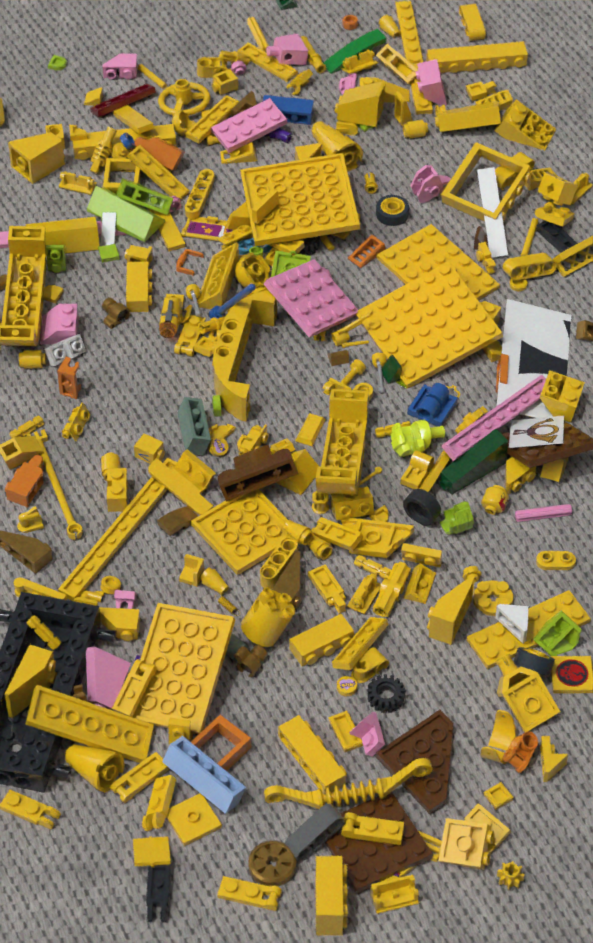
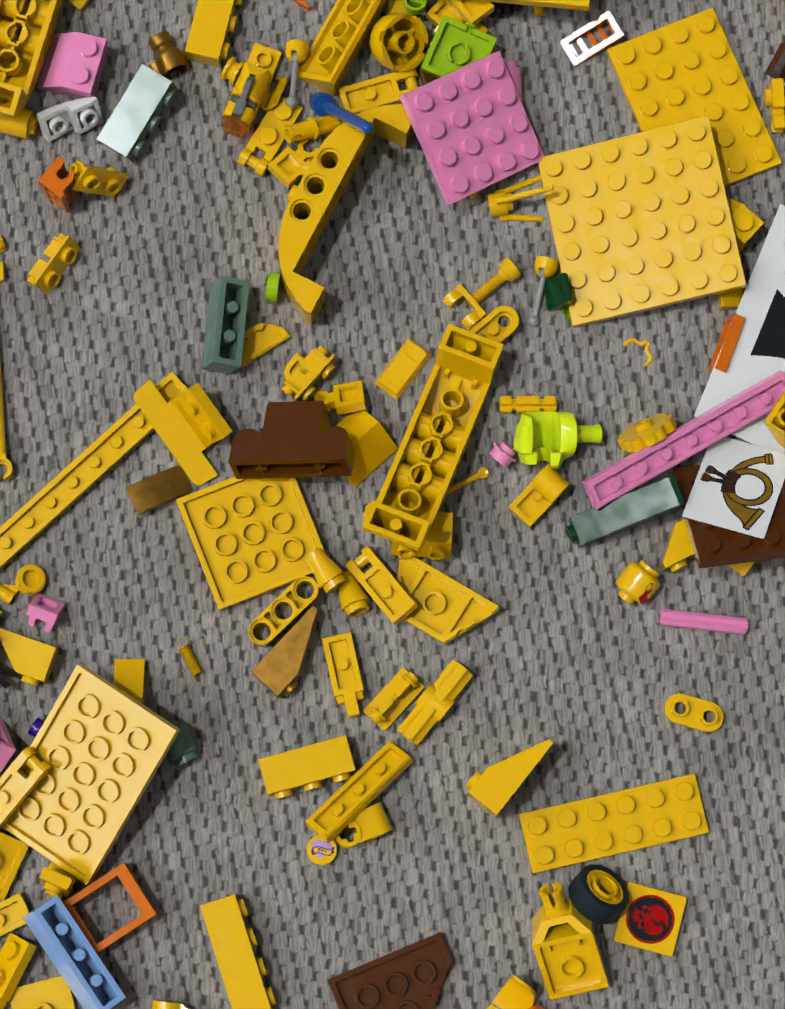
camera: 10 degrees right, 30 degrees up
(93, 371) = (97, 179): none -> yellow hinge
(106, 337) = (137, 112): none -> brick
(109, 460) = (84, 363): yellow brick -> none
(117, 489) = (85, 401): yellow brick -> none
(149, 449) = (149, 348): yellow brick -> none
(156, 308) = (231, 70): none -> yellow bush
(192, 570) = (153, 591): yellow panel -> none
(214, 581) = (181, 616): yellow cone -> none
(218, 446) = (254, 368): yellow tile -> none
(250, 660) = (195, 775): pearl gold piece -> none
(268, 617) = (235, 721): yellow cylinder -> none
(339, 357) = (486, 240): pearl gold slope -> none
(342, 725) = (298, 925): yellow tile -> none
(370, 733) = (329, 942): bright pink slope -> none
(372, 567) = (420, 651): yellow axle -> none
(380, 514) = (460, 562): yellow tile -> none
(386, 703) = (354, 888): black tyre -> none
(387, 454) = (503, 453): none -> bright pink plate
(420, 584) = (480, 700): yellow slope -> none
(421, 555) = (485, 654): yellow plate -> none
(427, 501) = (522, 573): black tyre -> none
(433, 404) = (601, 376): blue plate -> none
(435, 471) = (556, 514): yellow tile -> none
(457, 518) = (569, 603): lime hair -> none
(472, 571) = (560, 706): yellow plate -> none
(488, 588) = (588, 769): yellow plate -> none
(514, 619) = (595, 819): white slope -> none
(558, 634) = (647, 855): lime slope -> none

